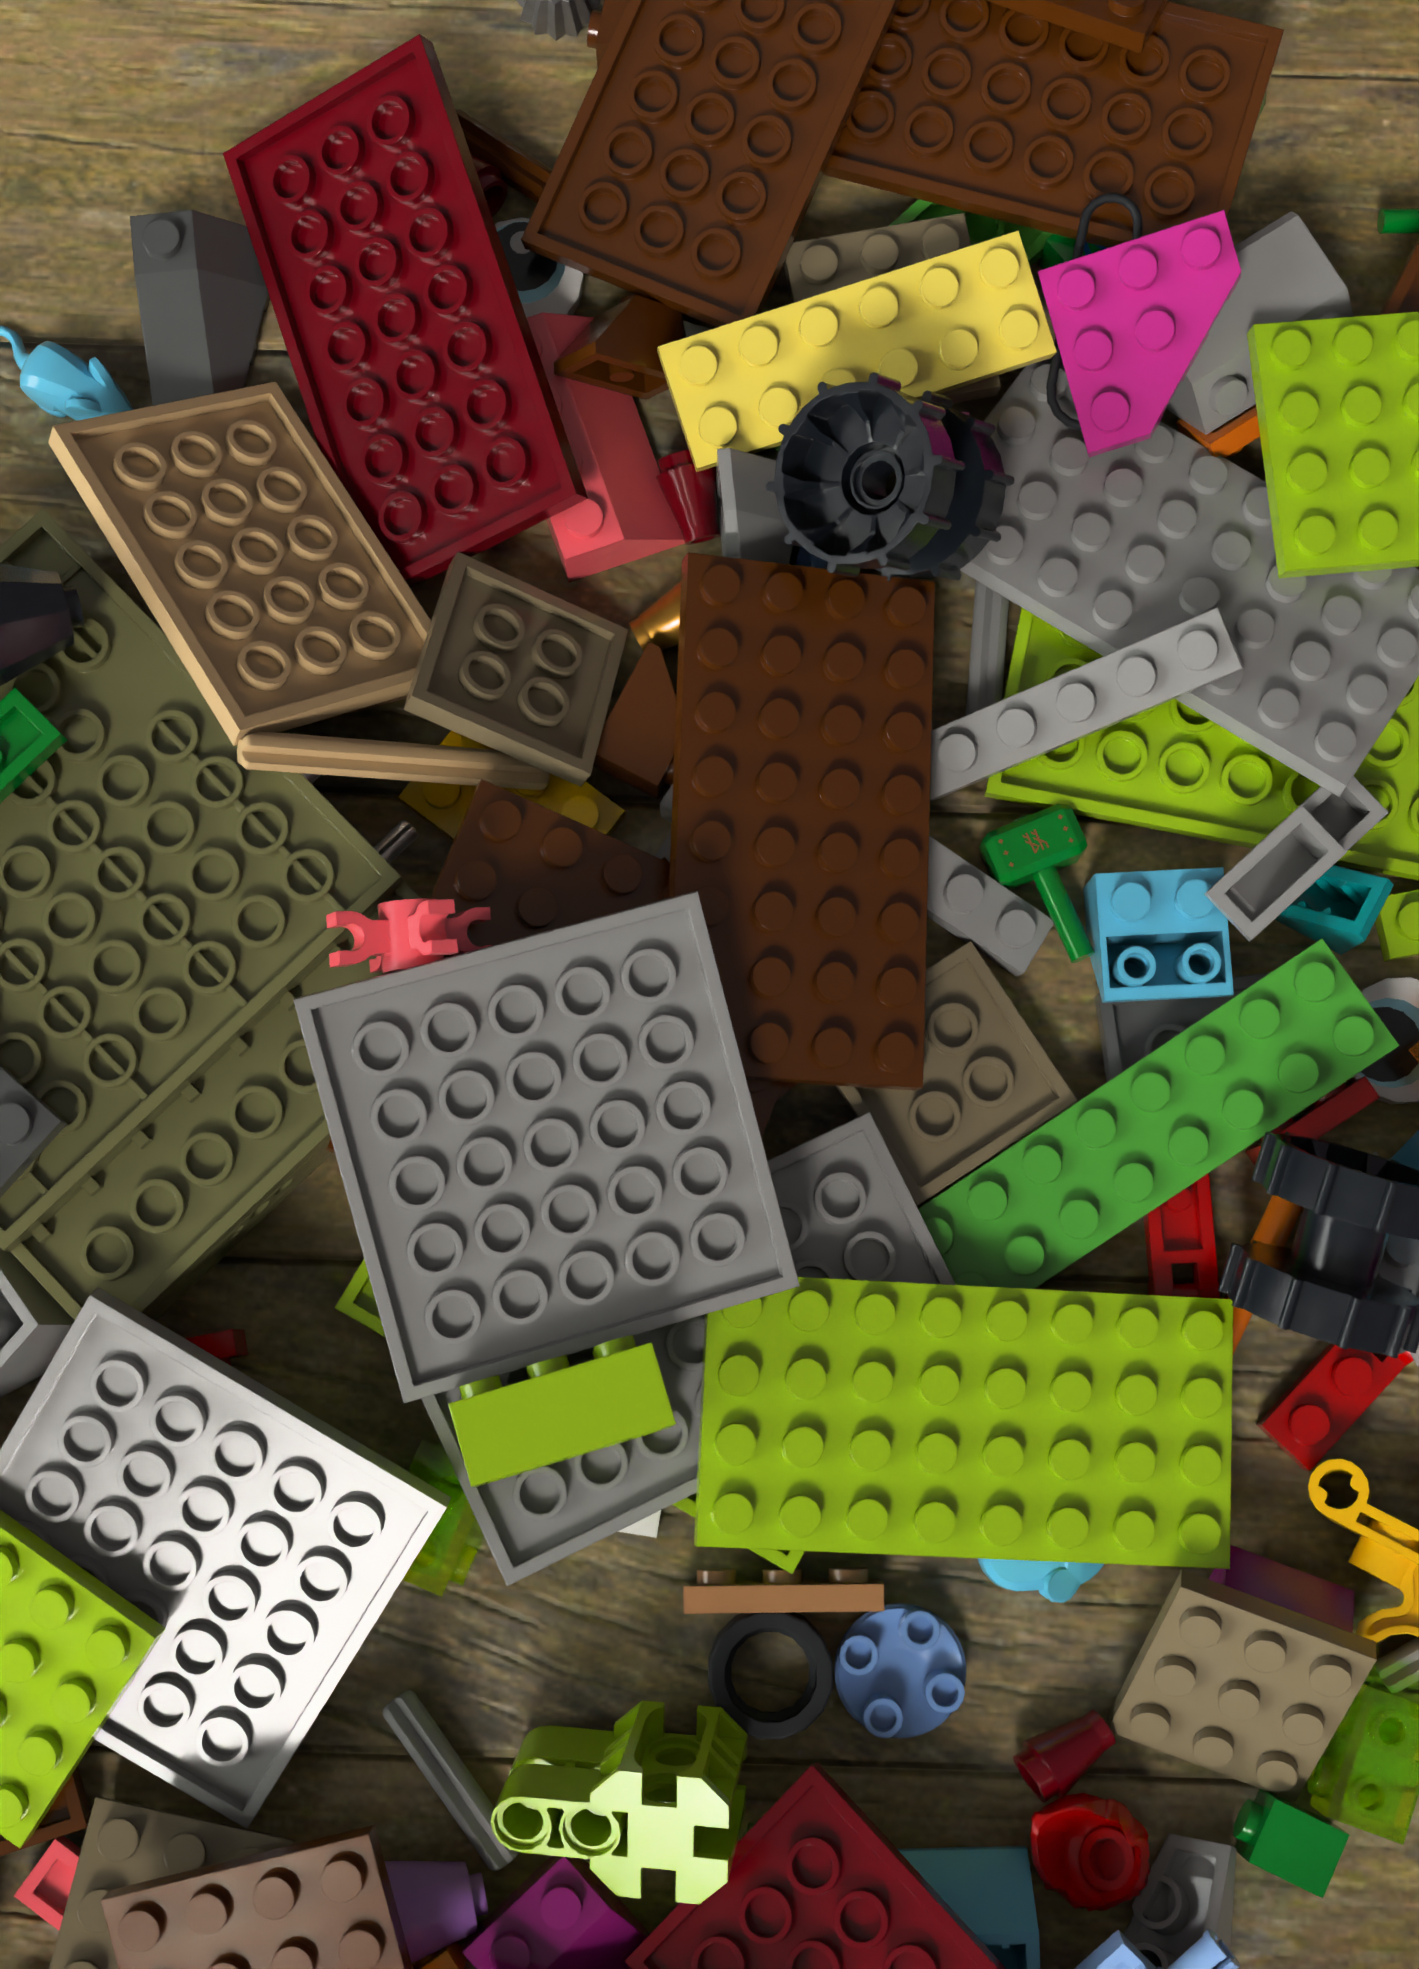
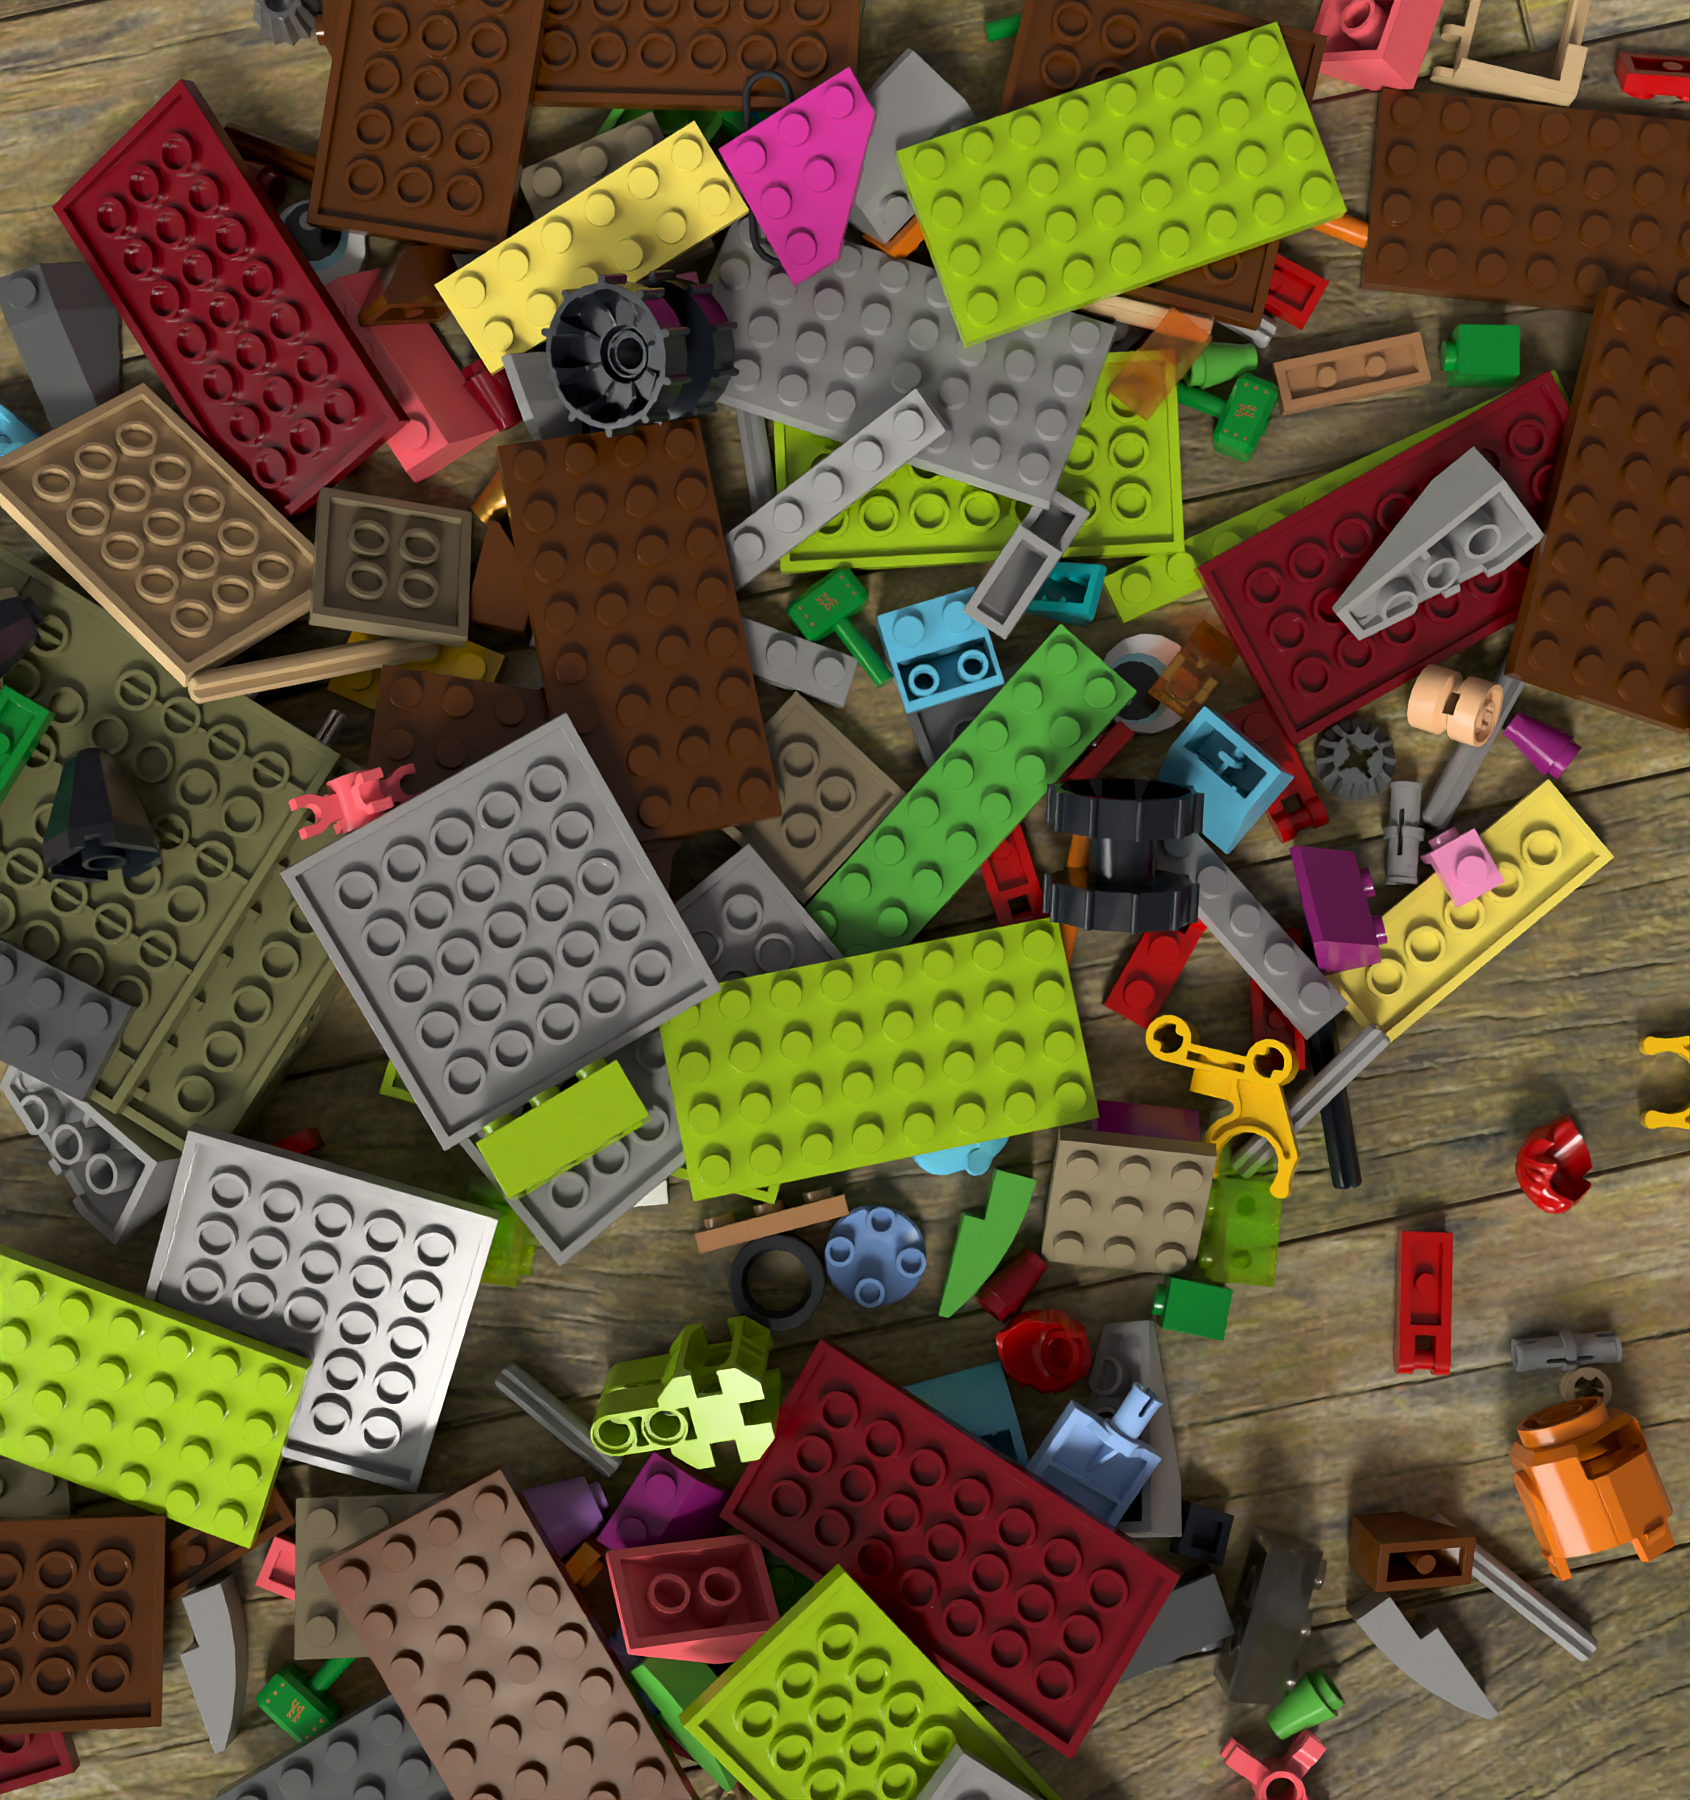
camera: 10 degrees left, 5 degrees up
(83, 884) = (98, 822): none -> black cone
(1044, 1687) = (985, 1238): none -> bright green slope

